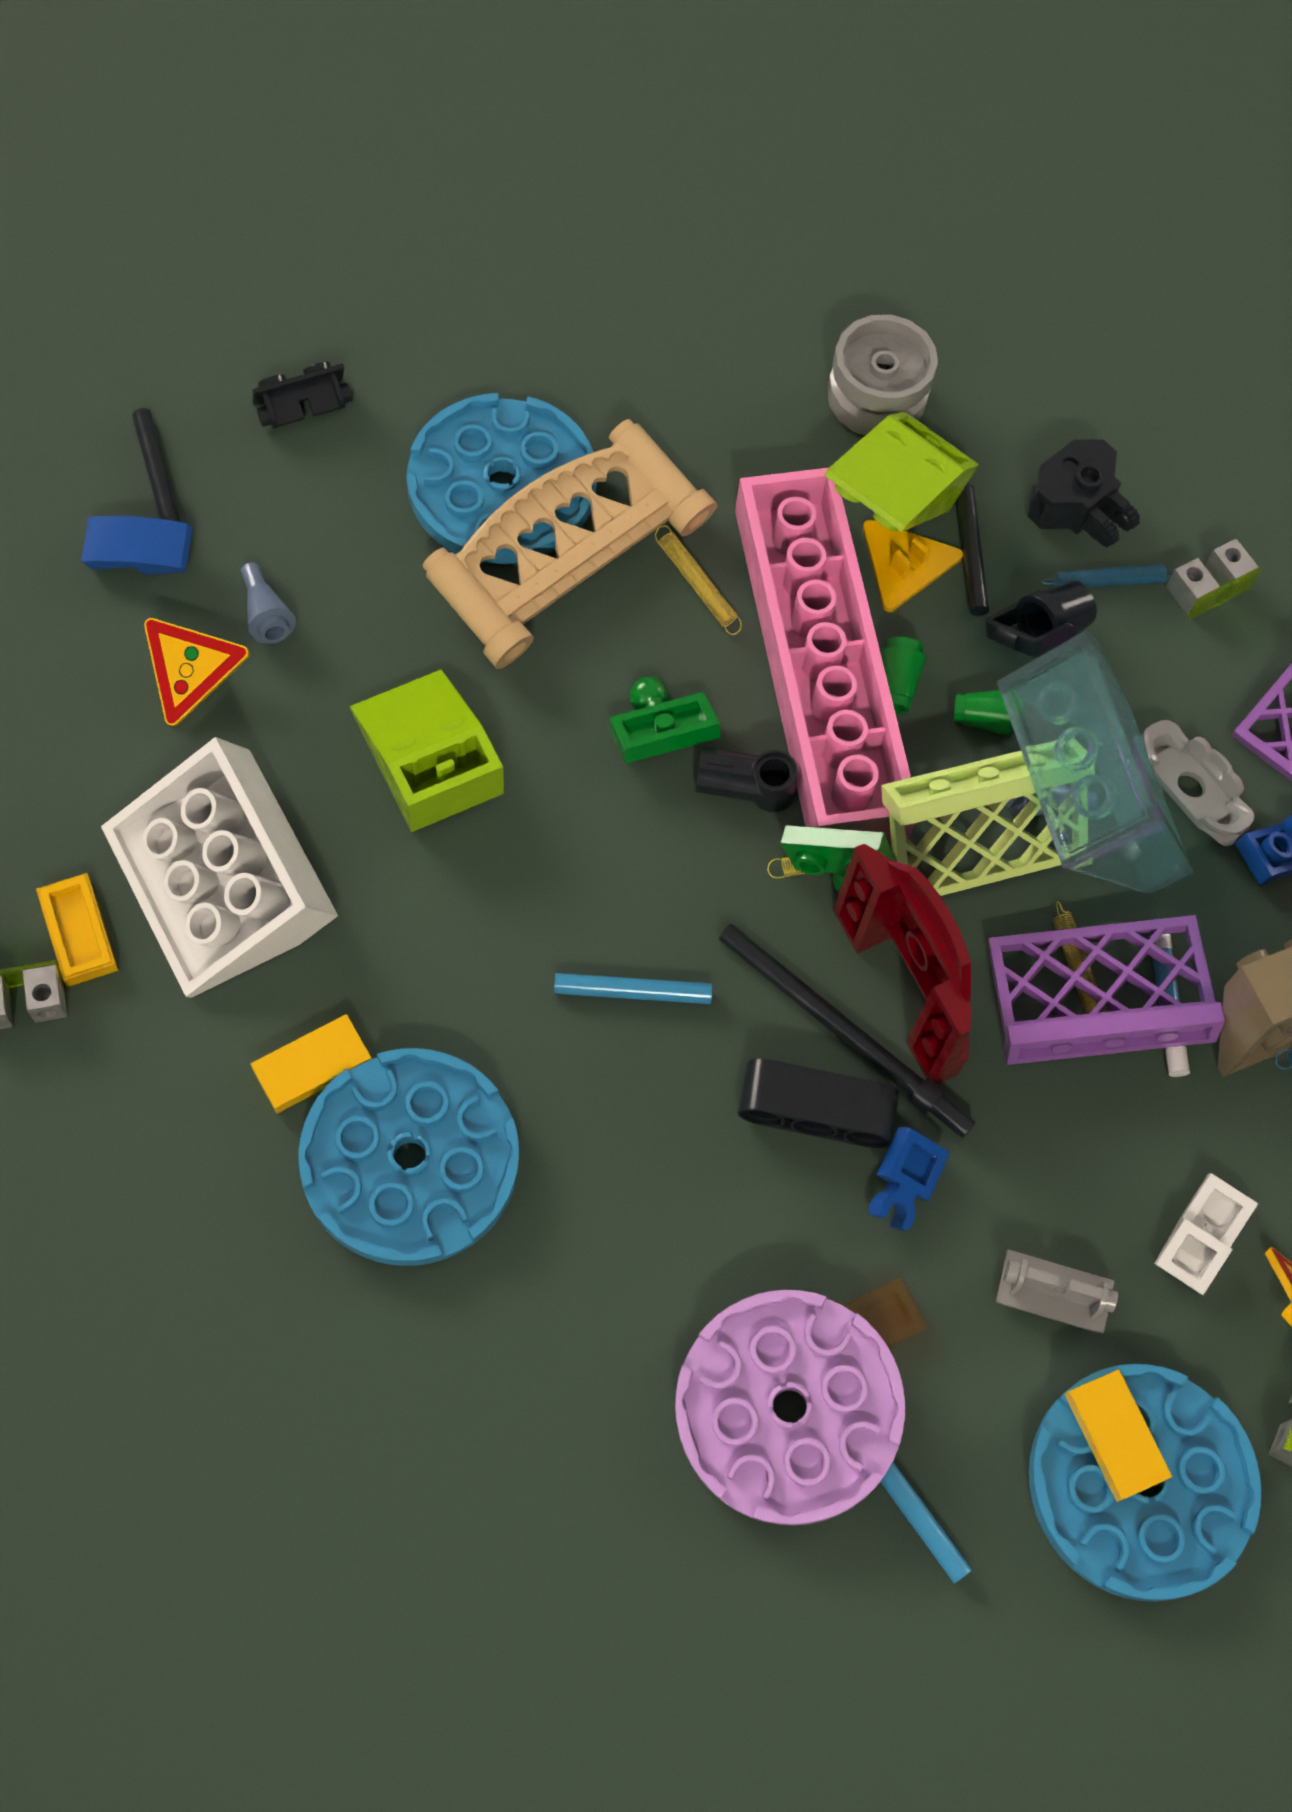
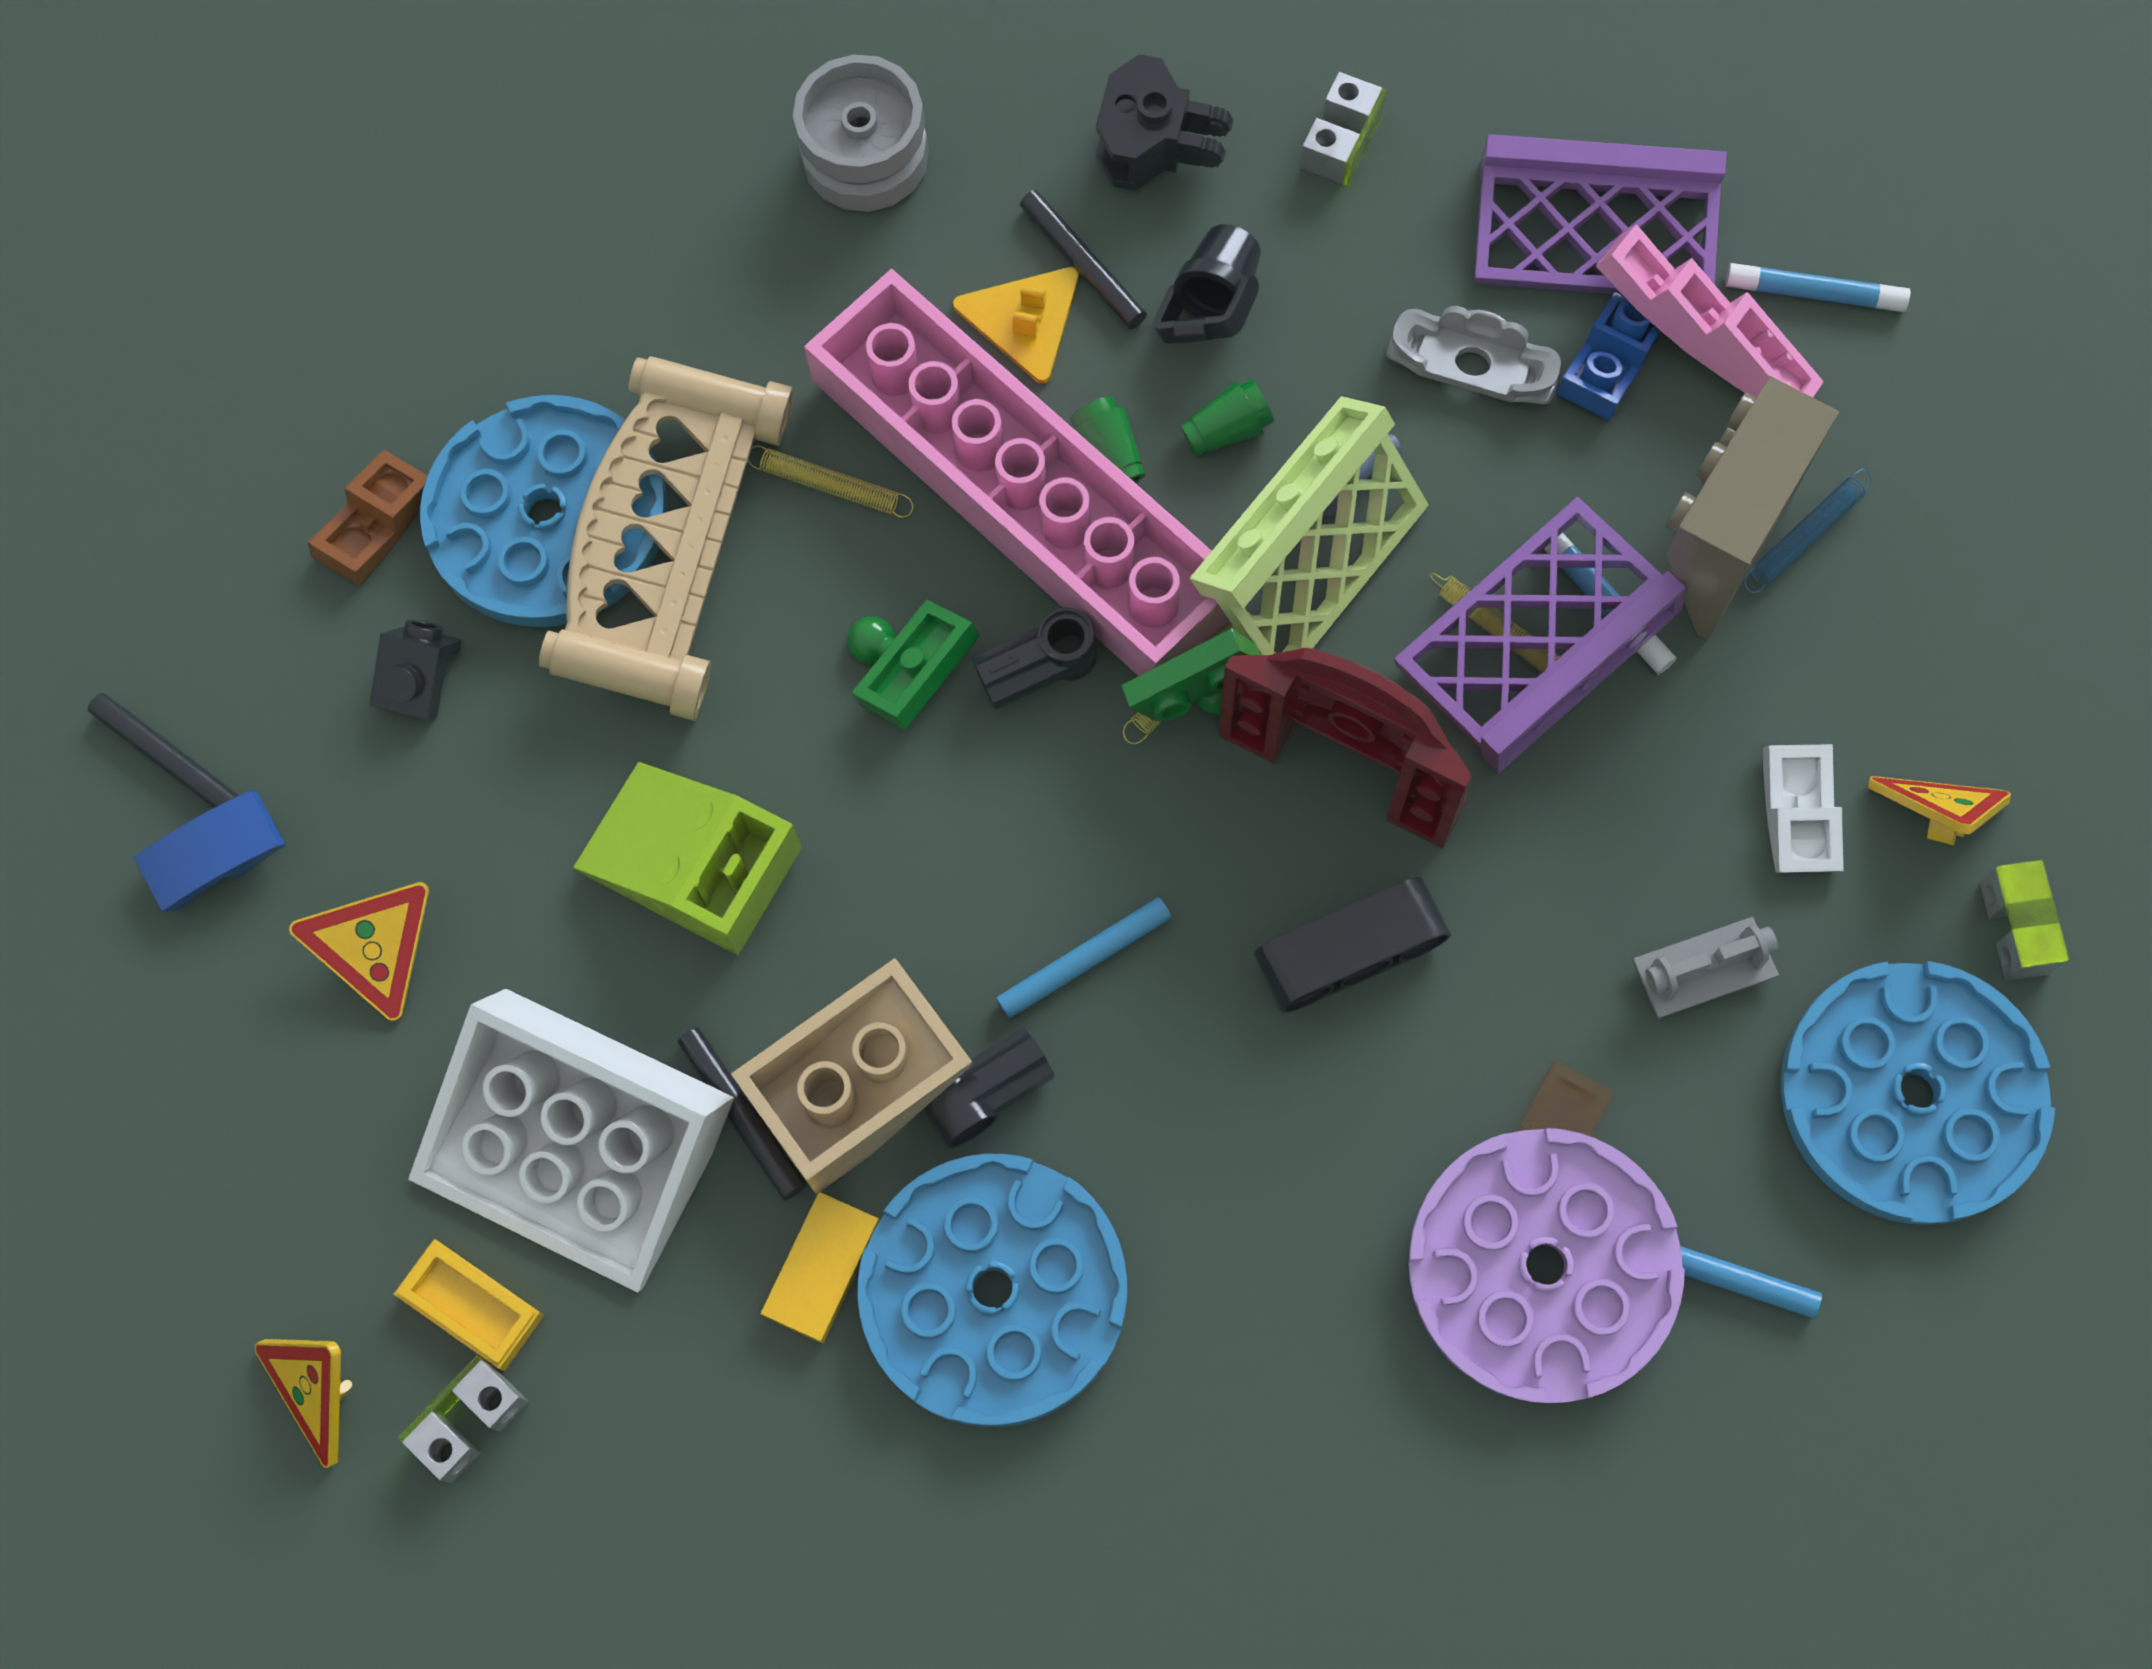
camera: 25 degrees left, 5 degrees up
(267, 614) = (409, 829): sand blue cone -> none
(283, 395) = (241, 581): black hinge -> none
(337, 933) = (742, 1114): none -> black bar
(344, 518) = (412, 669): none -> black bracket
(390, 416) = (377, 513): none -> dark orange slope
(419, 952) = (852, 1075): none -> tan slope
(489, 1021) = (989, 1086): none -> black piece
(902, 473) = (963, 228): lime slope -> none
(911, 1173) = (1490, 948): blue plate -> none
(924, 1094) = (1446, 860): black bar -> none
(1093, 769) = (1383, 418): clear light blue windscreen -> none
(1111, 579) = (1239, 194): dark azure piece -> none
(1118, 1435) = (1867, 1067): yellow tile -> none

